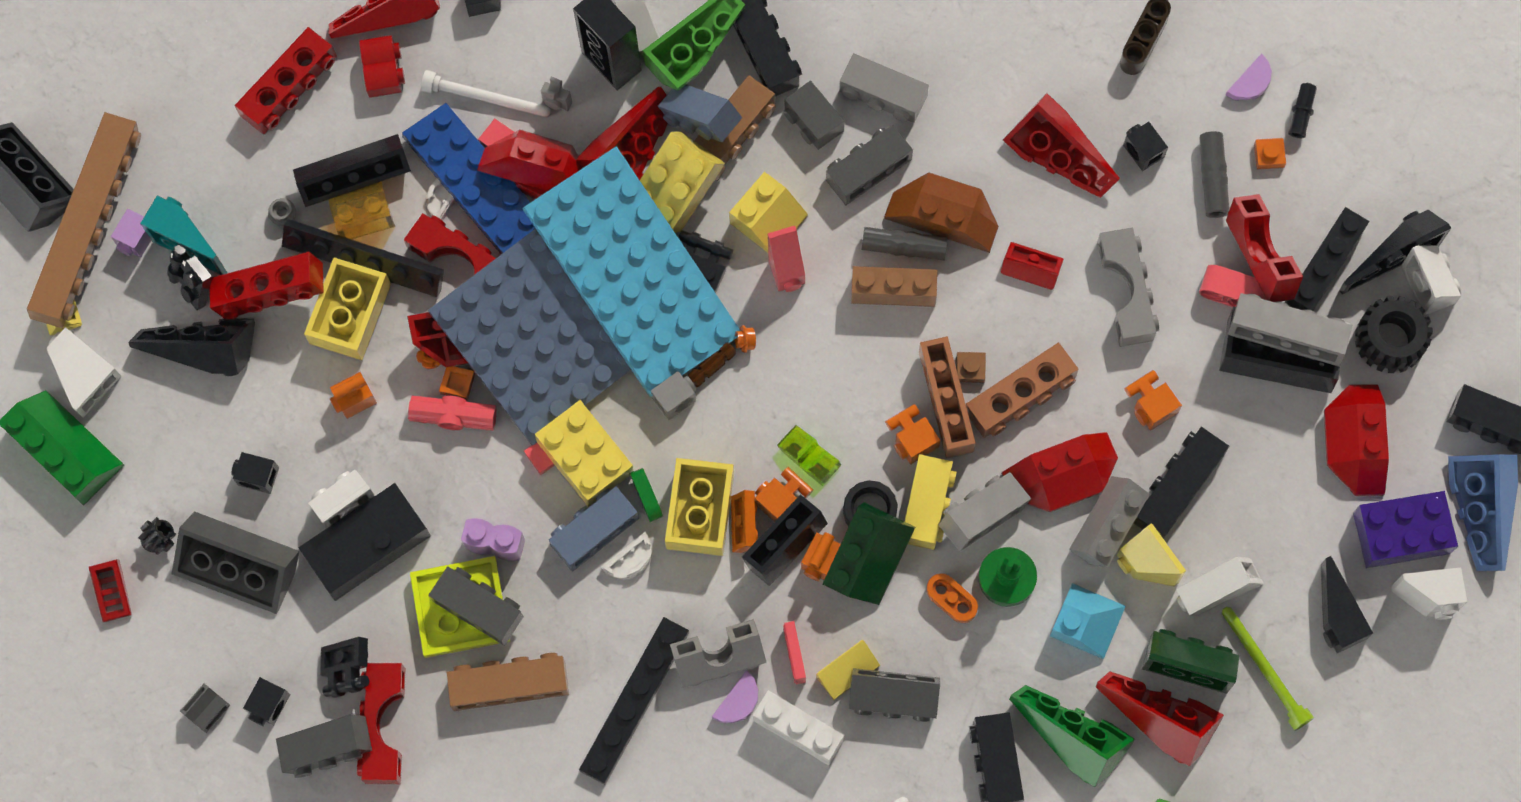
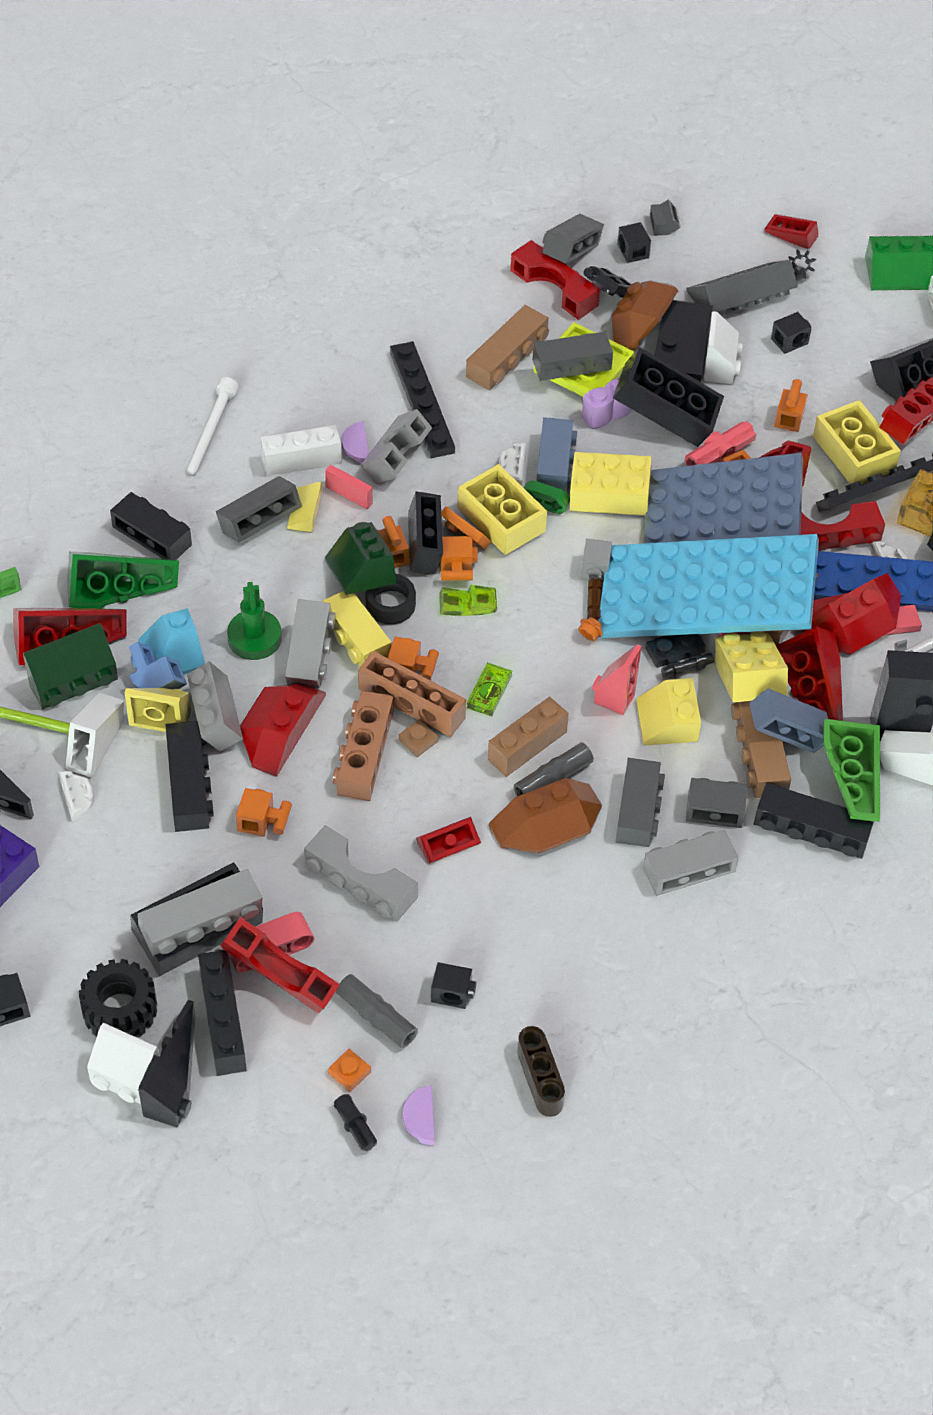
camera: 130 degrees right, 20 degrees down
(354, 604) = (640, 311): none -> dark orange wedge
(451, 482) = (668, 397): none -> black brick
(873, 361) = (489, 689): none -> clear neon green tile
(954, 596) = (281, 591): orange plate -> none
(1057, 143) = (535, 933): red wedge -> none
(1132, 595) = (152, 672): none -> medium blue brick
(1273, 550) = (77, 793): none -> white tile
(1358, 439) = (83, 913): red wedge -> none

